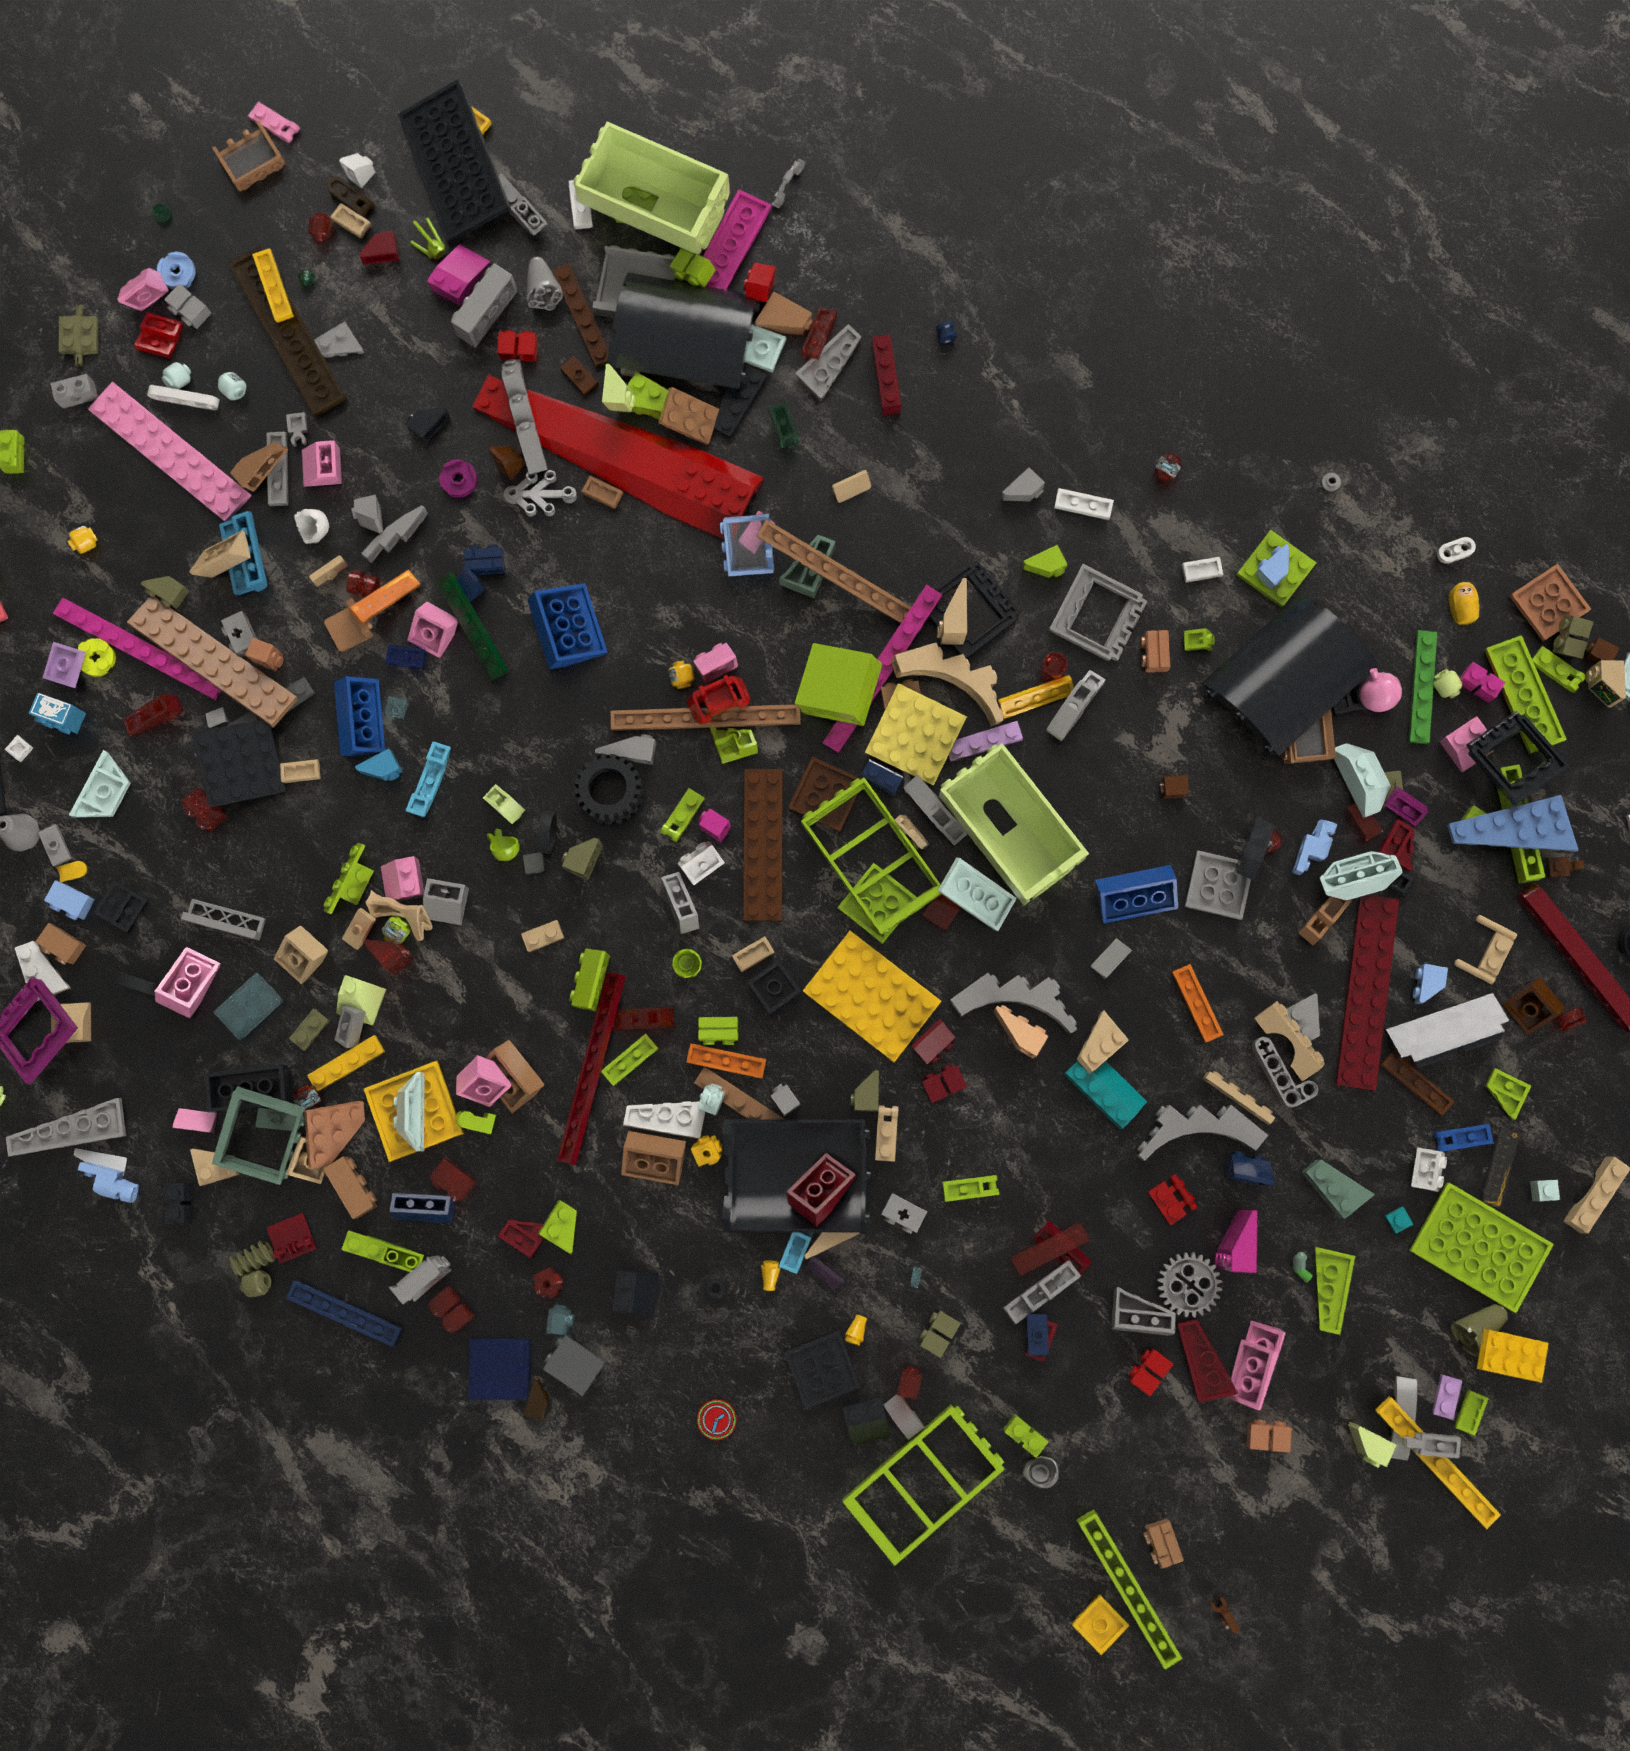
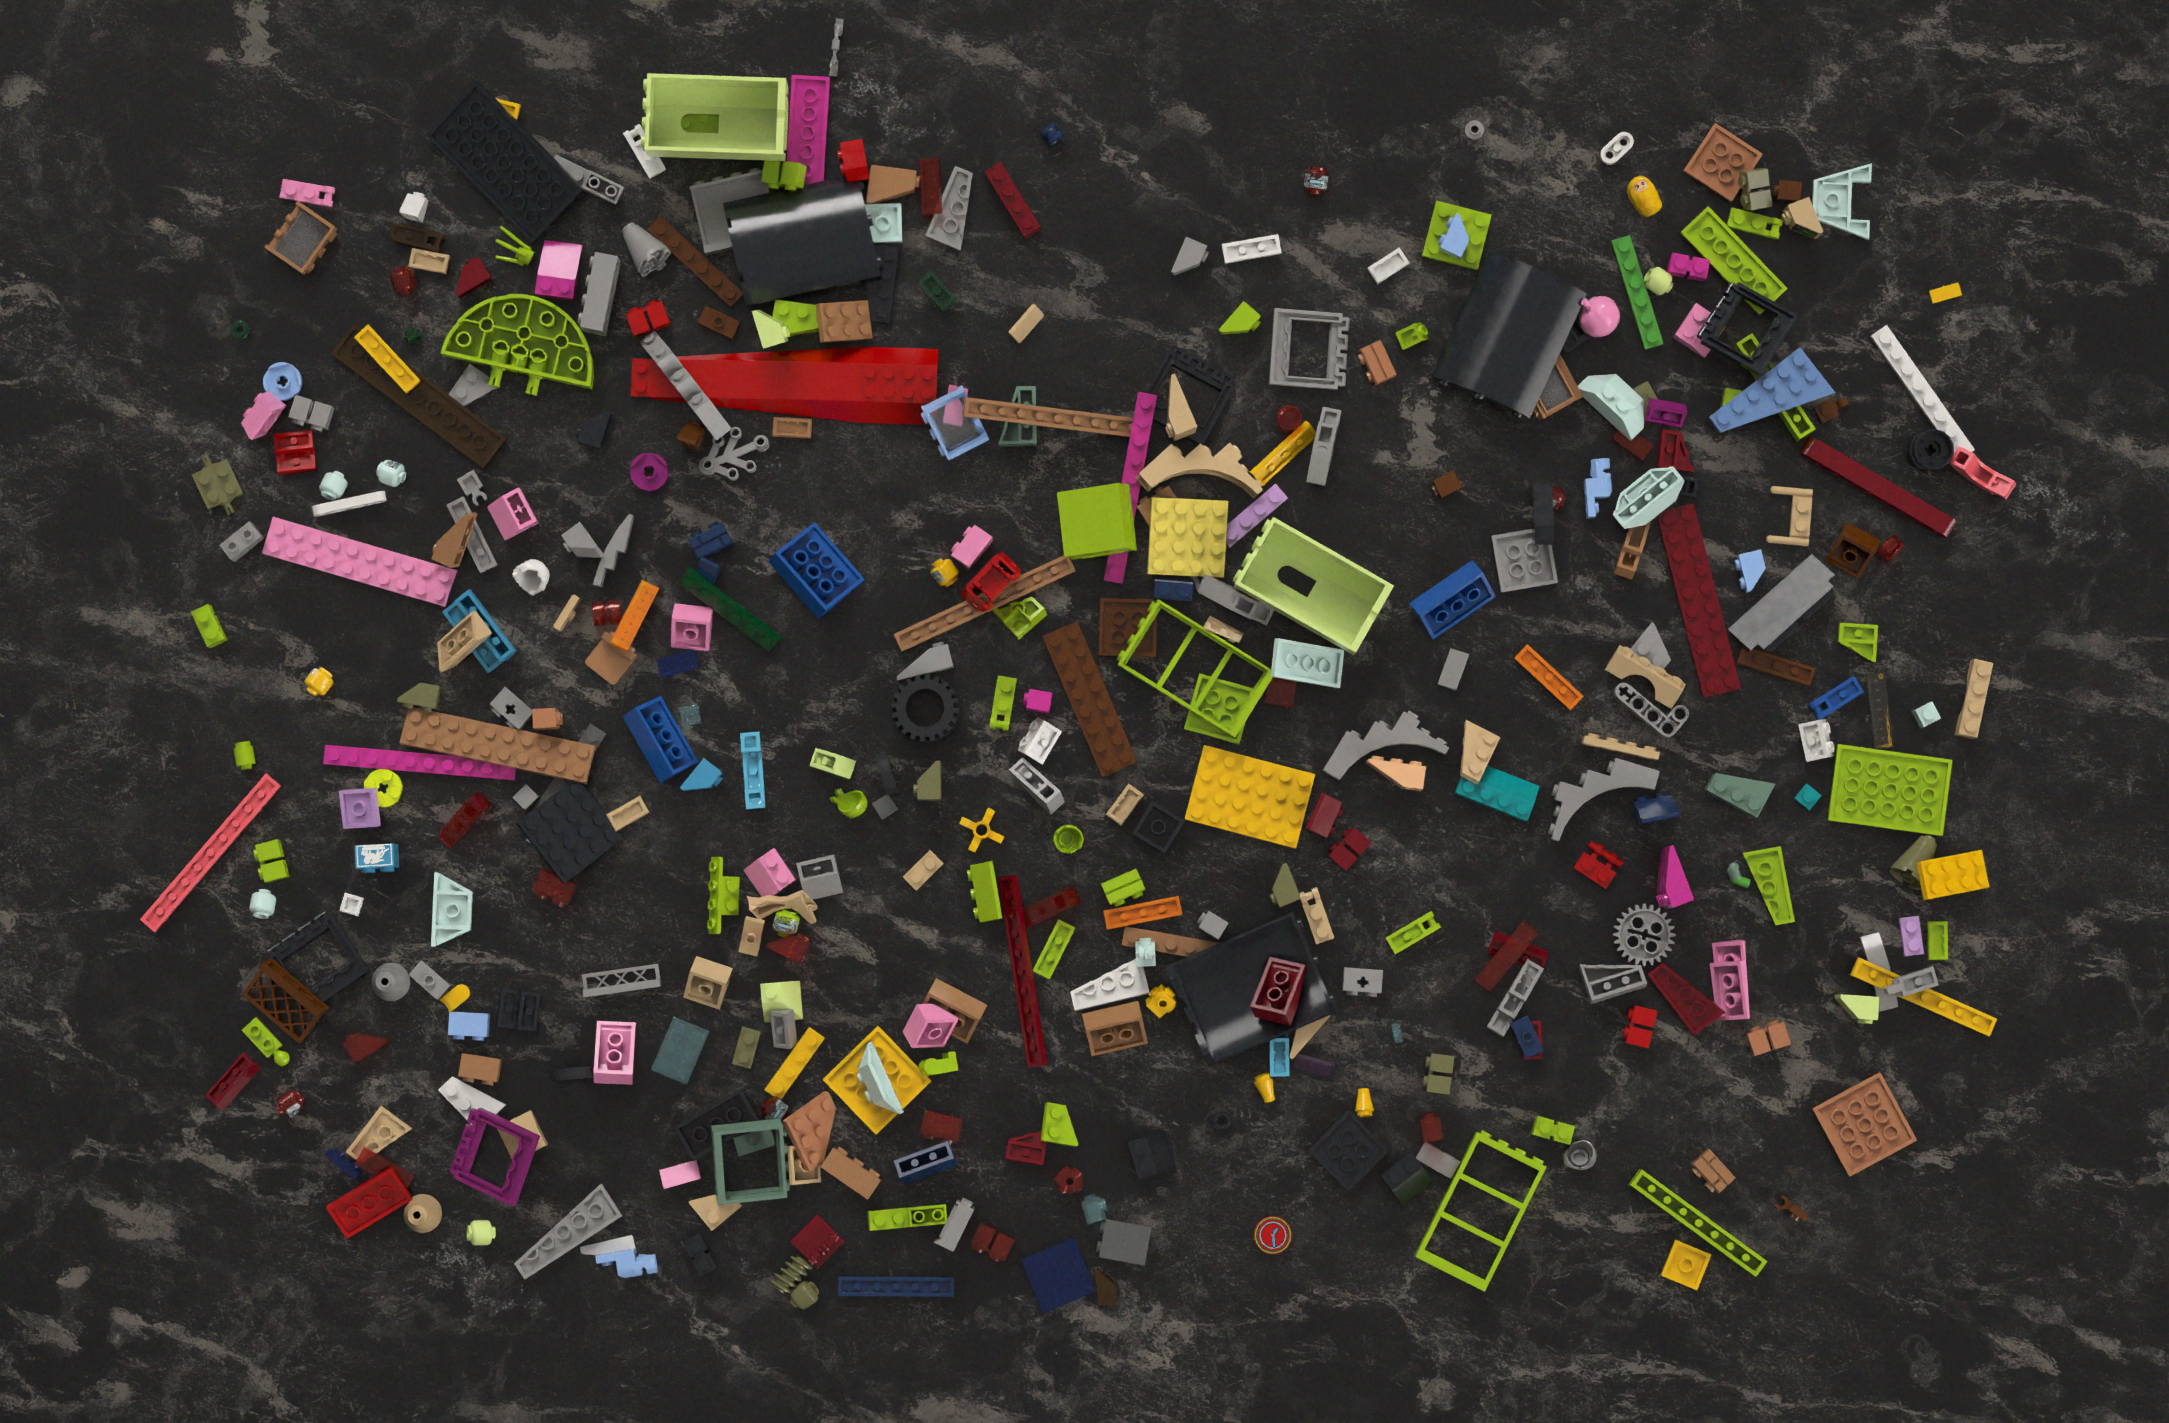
camera: 30 degrees left, 5 degrees up
(400, 316) = (522, 337): none -> lime brick
(602, 929) = (977, 838): none -> yellow pin
(1329, 1562) = (1864, 1124): none -> nougat plate

